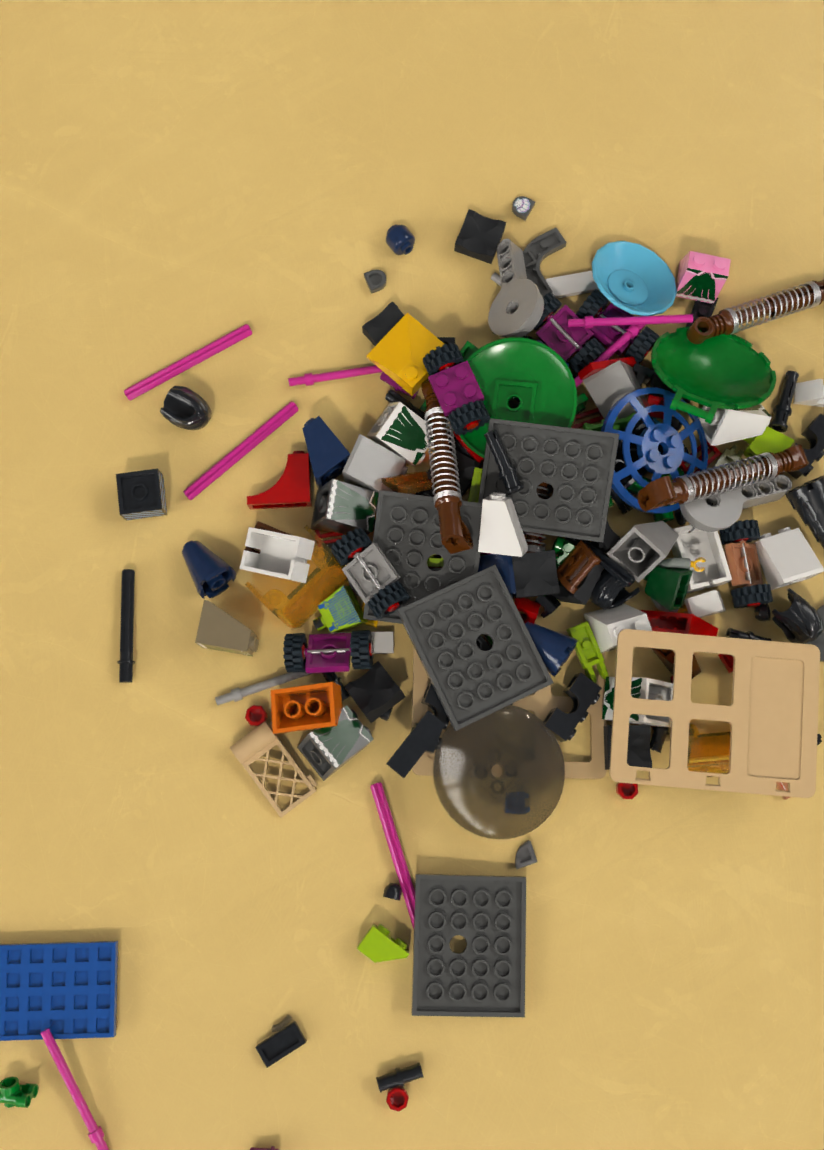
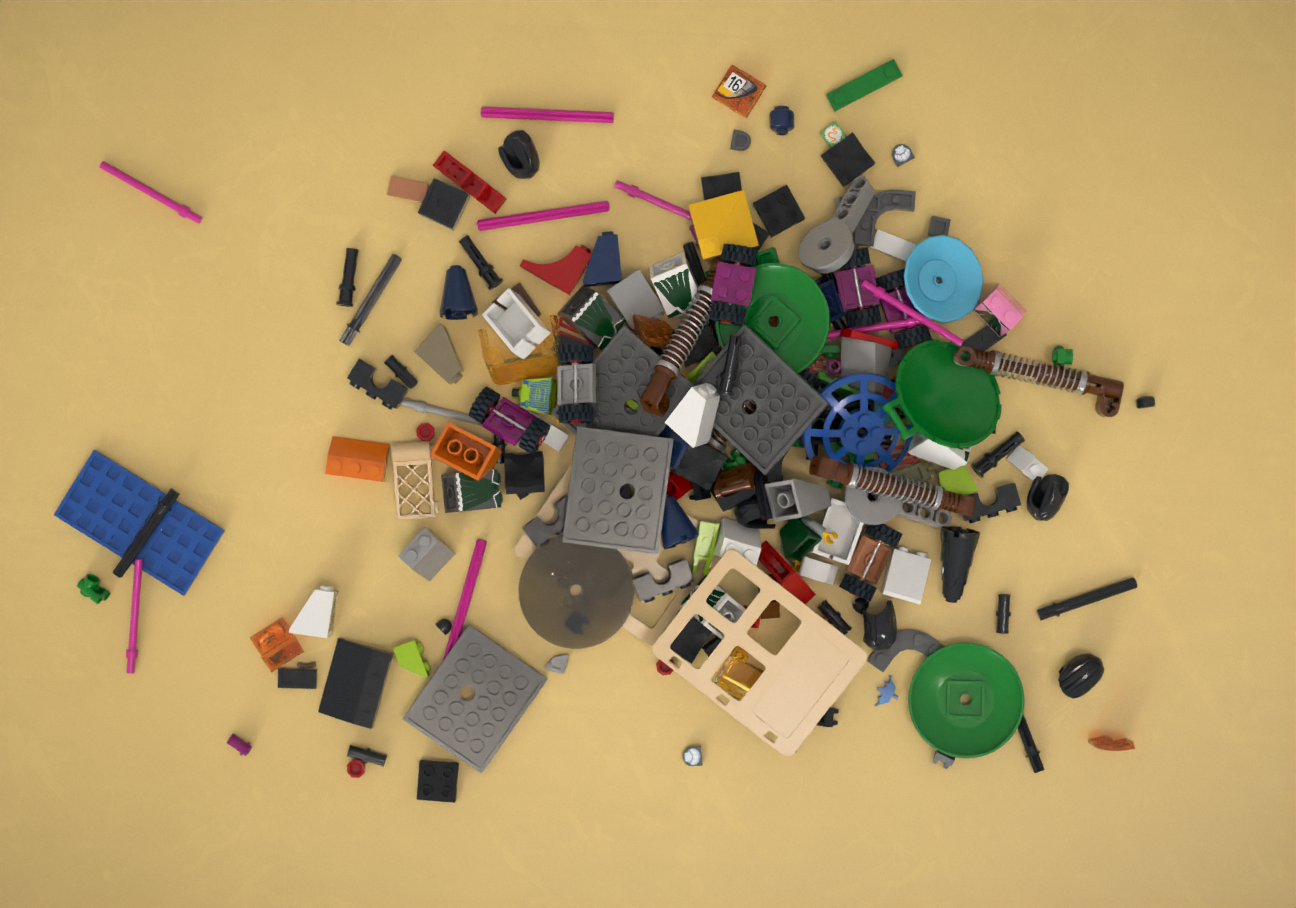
camera: 40 degrees right, 10 degrees up
(36, 998) = (146, 532): none -> black axle
(96, 626) = (347, 286): none -> black pin
(99, 505) = (407, 189): none -> nougat tile
(145, 459) = (469, 182): none -> red slope
(162, 701) = (362, 376): none -> black arch
(197, 674) = (401, 372): none -> black axle
(206, 784) = (357, 459): none -> orange slope
(218, 530) = (485, 269): none -> black pin
(239, 1023) = (276, 644): none -> clear orange slope
(260, 965) = (317, 614): none -> white slope
(330, 832) = (426, 554): none -> light grey slope
(342, 1010) = (355, 683): none -> black slope
(346, 239) = (739, 91): none -> slope
(415, 744) = (527, 532): black tile -> none
(449, 315) = (779, 210): none -> black brick
(450, 172) = (864, 85): none -> green plate
(452, 226) = (833, 134): none -> tile
(486, 1055) = (437, 781): none -> black brick
(592, 413) = (829, 369): none -> magenta pin
(594, 243) = (938, 226): none -> dark grey plate
(711, 858) = (692, 756): none -> tile
(779, 282) = (1062, 356): none -> green plate

